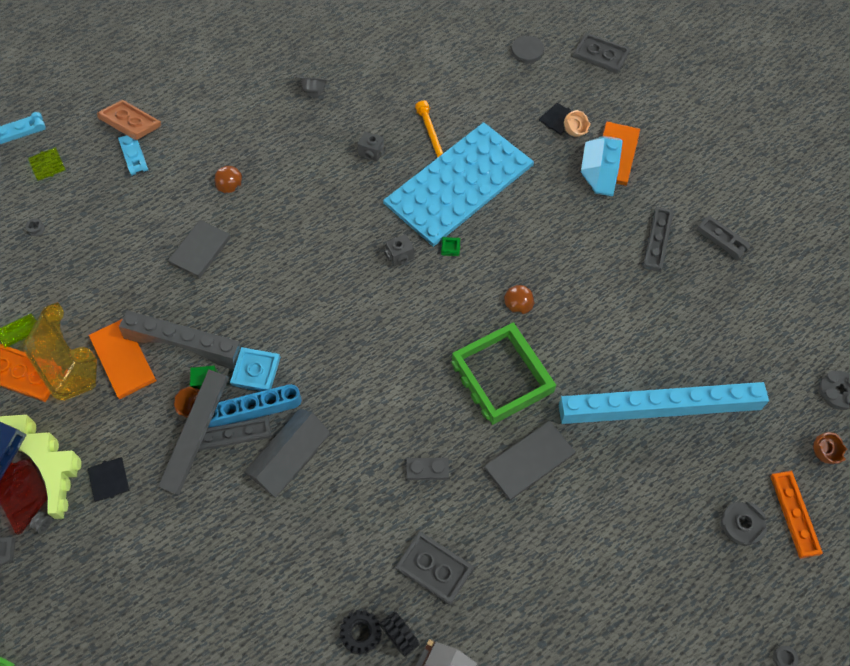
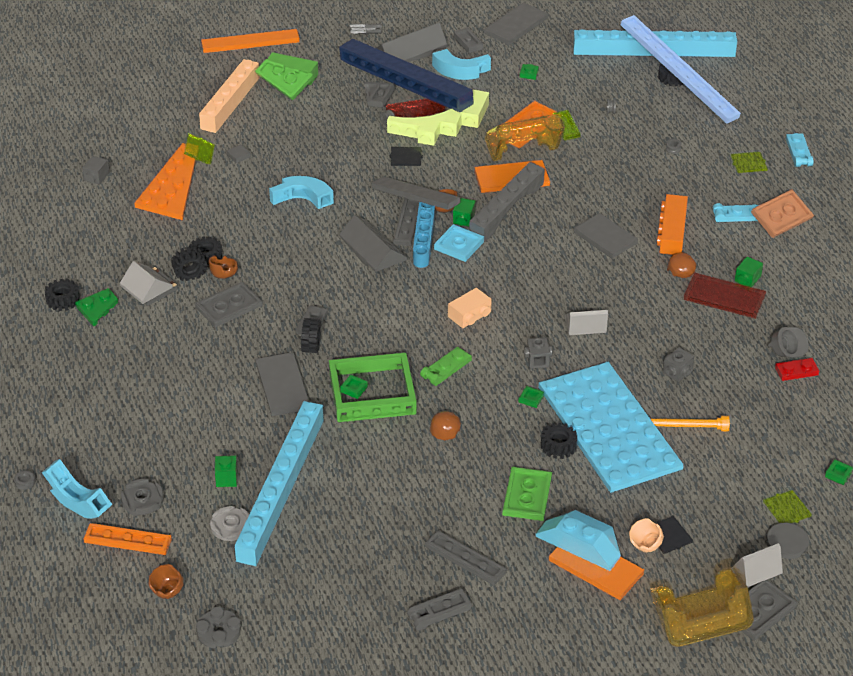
camera: 110 degrees right, 20 degrees down
(173, 192) = (673, 219): none -> orange brick
(207, 557) = (302, 187): none -> medium azure arch
(224, 126) = (748, 272): none -> green brick
(257, 141) = (725, 295): none -> clear red tile
(334, 228) = (586, 322): none -> light grey slope
(335, 76) = (797, 369): none -> red plate
(356, 326) = (469, 308): none -> light nougat brick
(384, 590) = (223, 268): none -> dark orange hair
(441, 324) = (446, 366): none -> bright green plate
(444, 31) = (839, 472): none -> green plate
(463, 450) = (311, 335): none -> black tyre
(493, 56) = (787, 507): none -> clear neon green piece
(498, 200) = (558, 432): none -> black tyre
(526, 376) = (354, 386): none -> green plate
(566, 217) = (527, 493): none -> bright green tile
(569, 55) = (760, 565): none -> light grey slope
(628, 74) = (705, 612): none -> clear yellow windscreen
(677, 455) = (226, 471): none -> green brick
(725, 431) = (231, 528): none -> light grey tile
(783, 581) = (72, 494): none -> medium azure arch

